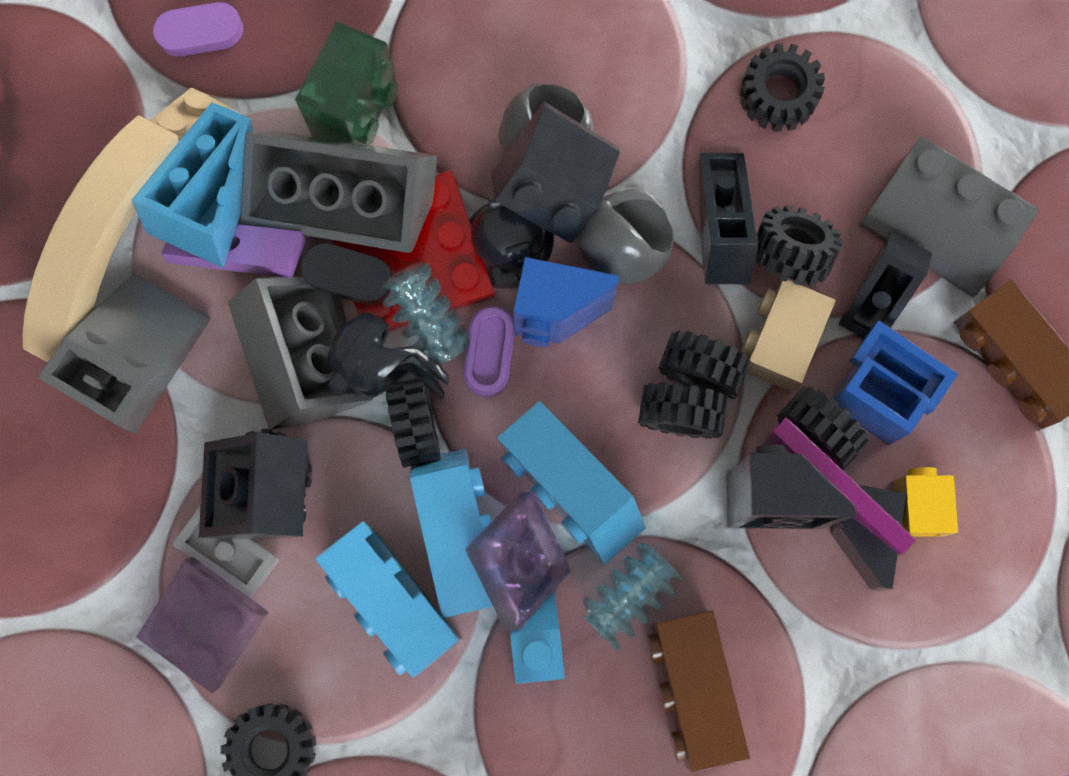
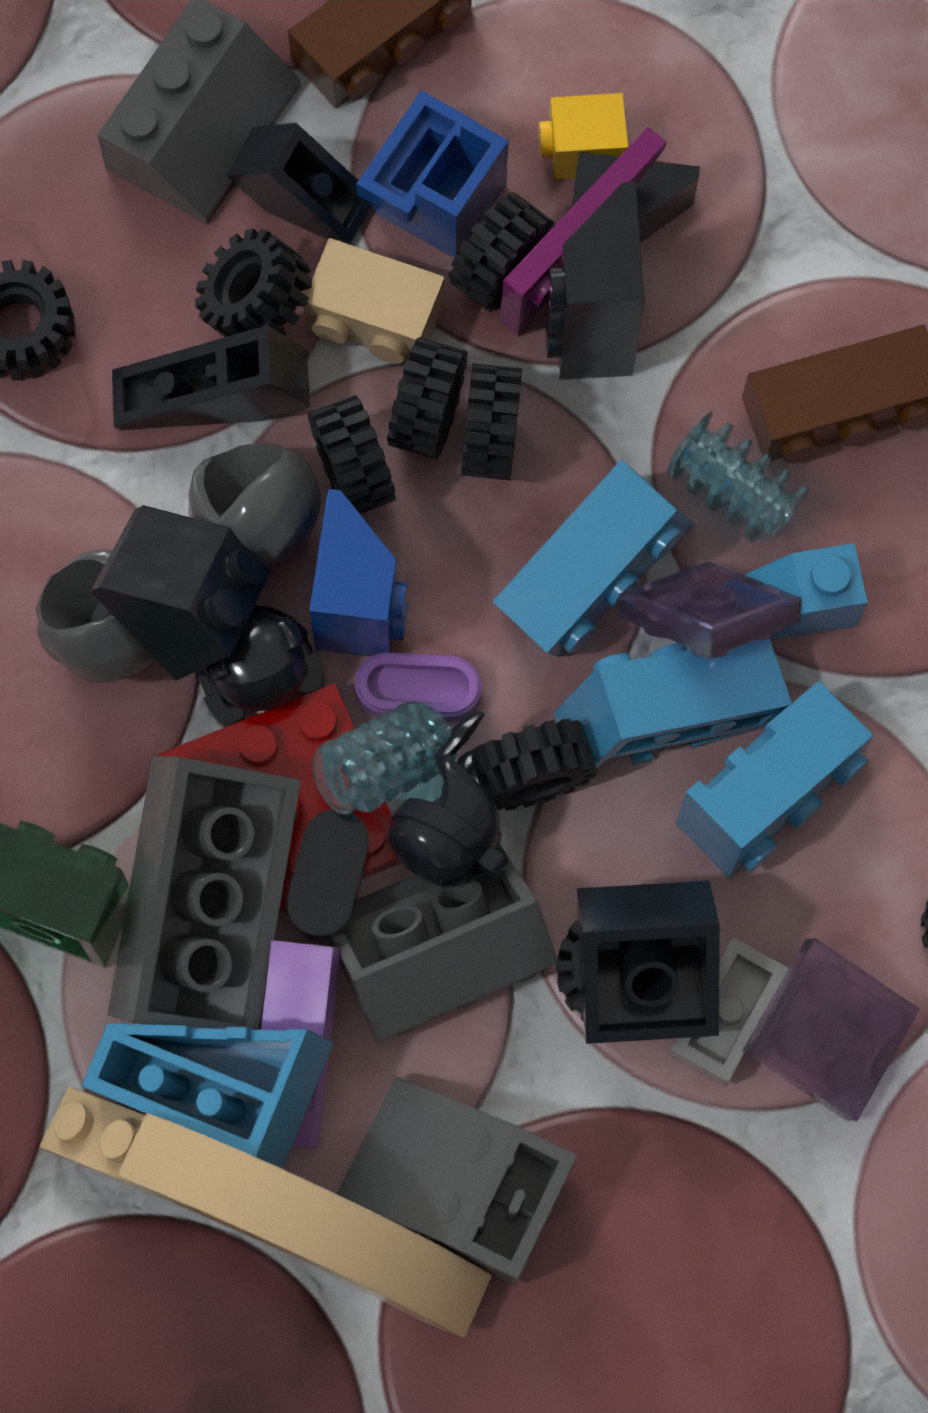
camera: 95 degrees left, 5 degrees down
(659, 307) = (352, 454): none -> black tyre

